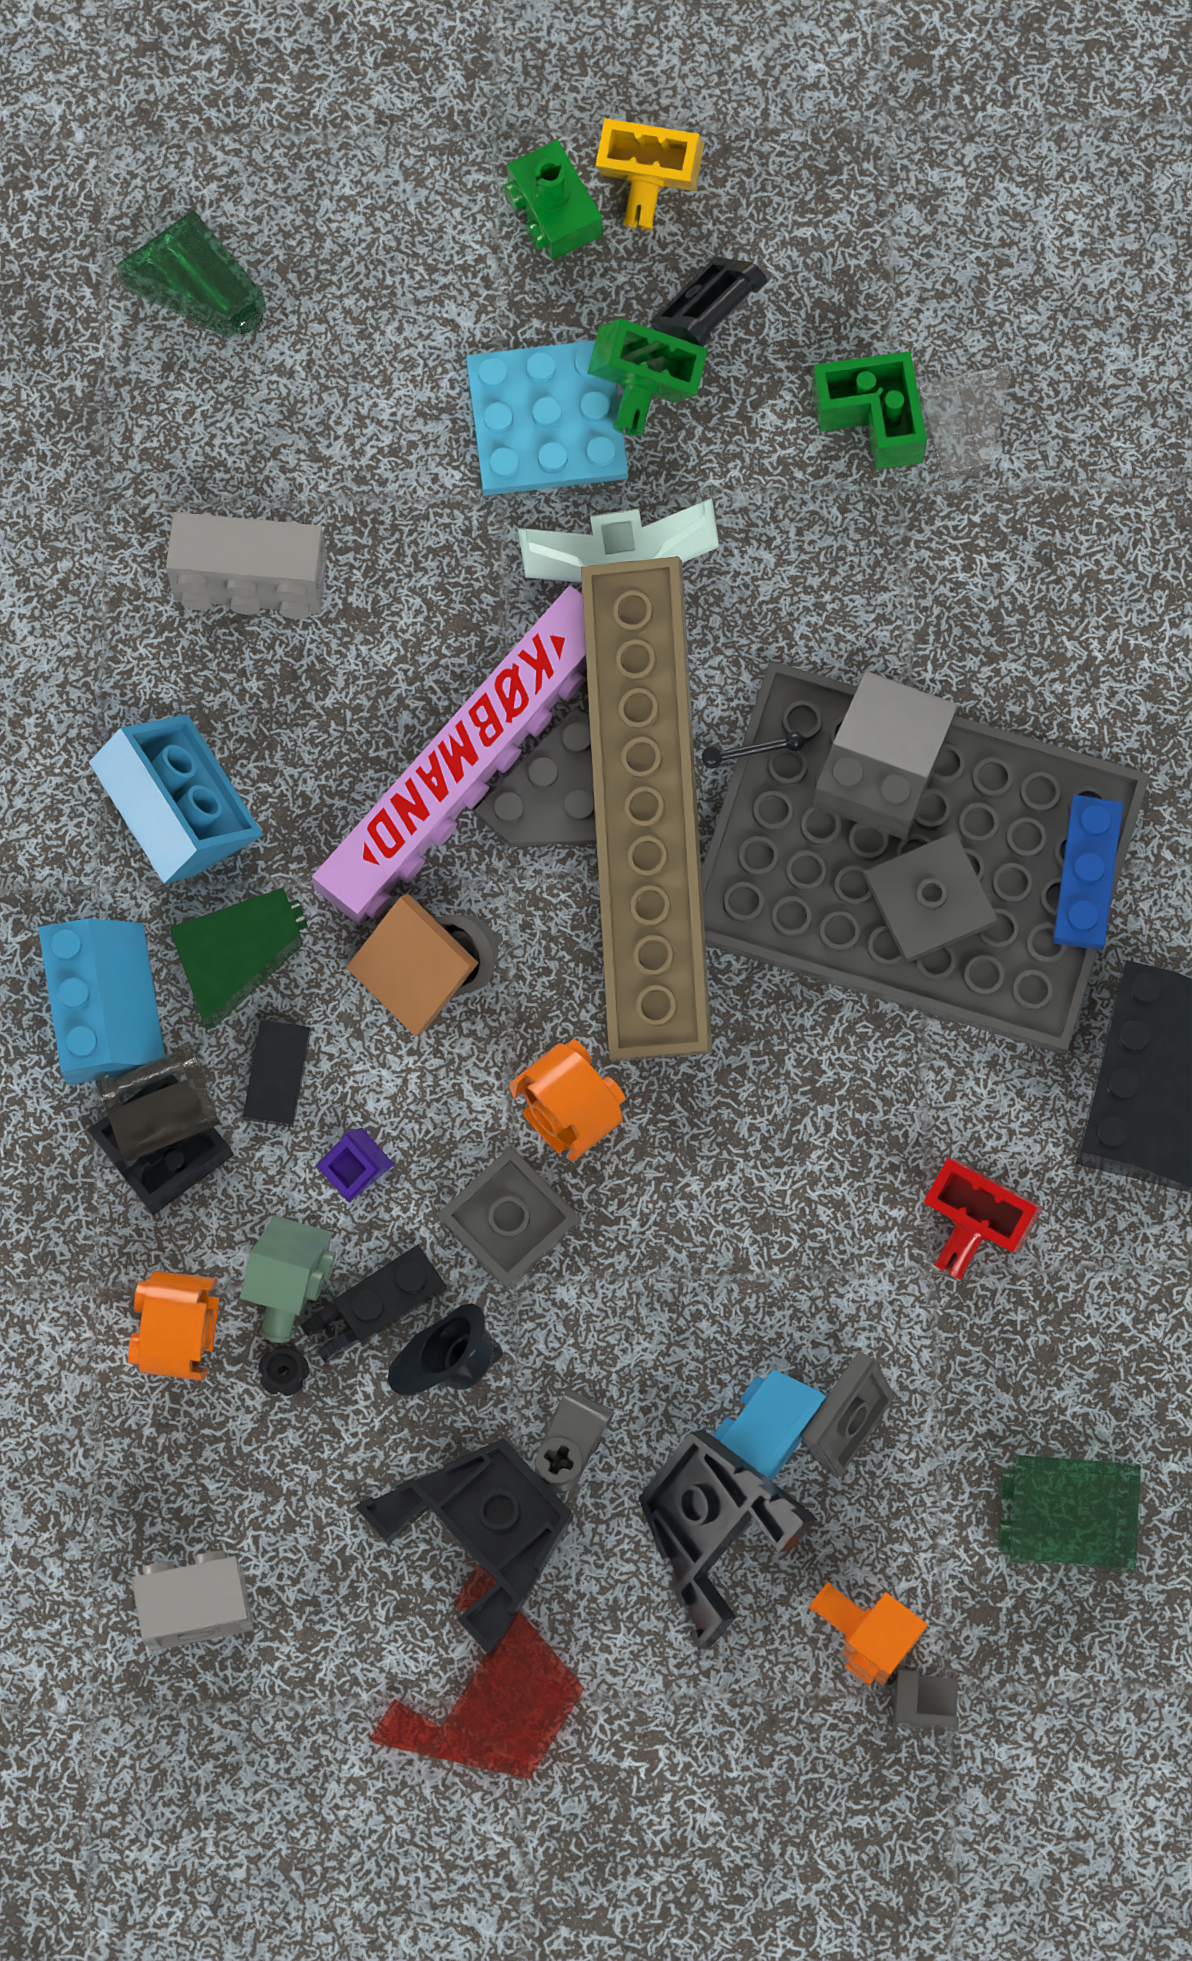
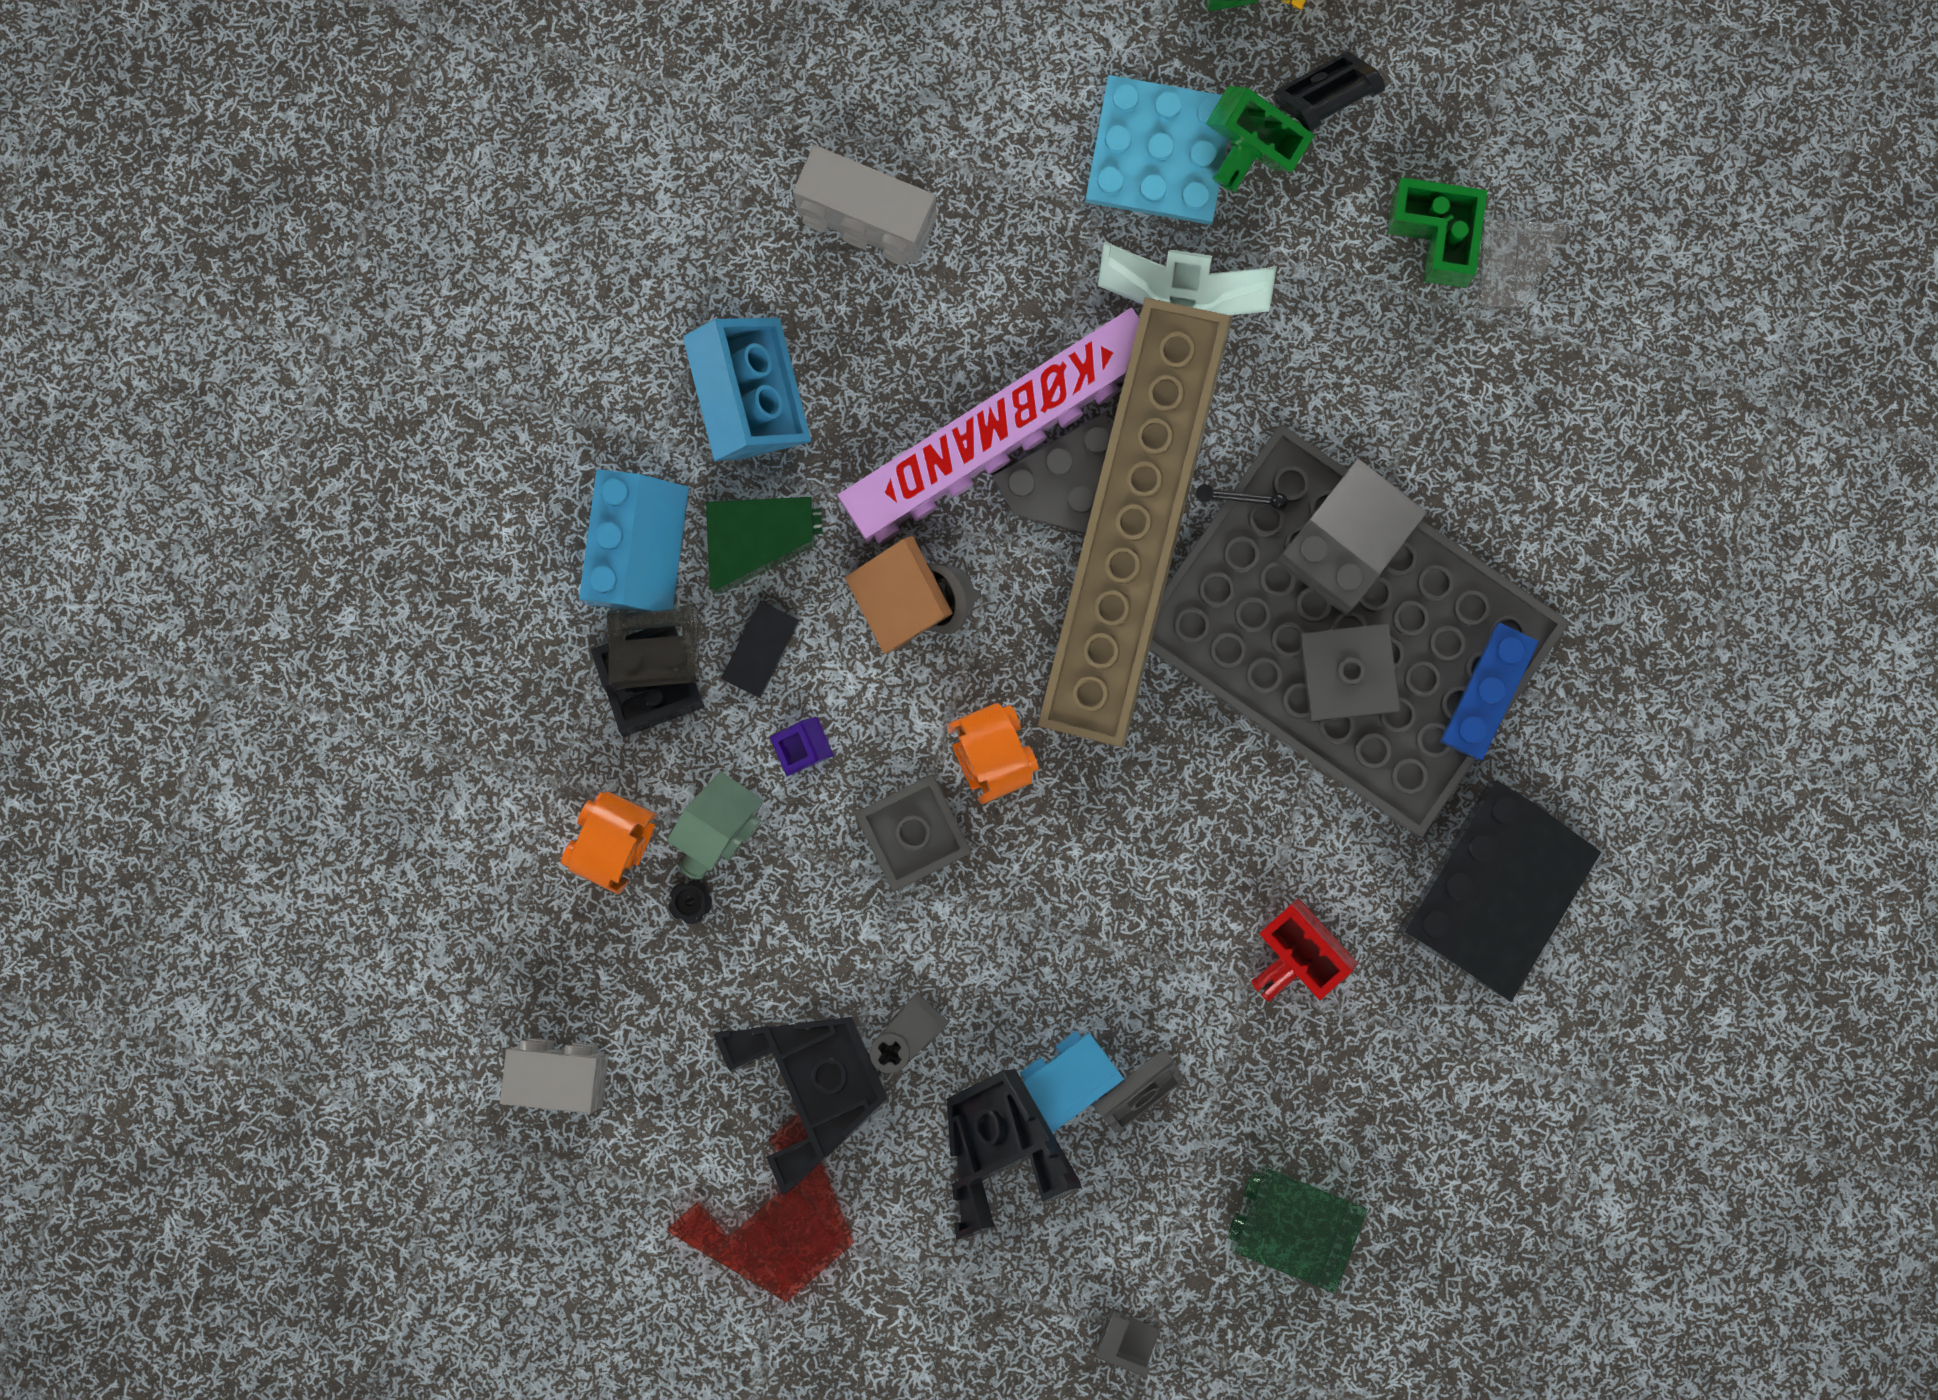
camera: 20 degrees right, 10 degrees up
(378, 1301) = (786, 867): black hinge -> none
(447, 1353) = (824, 931): black piece -> none
(874, 1638) = (1103, 1284): orange brick -> none

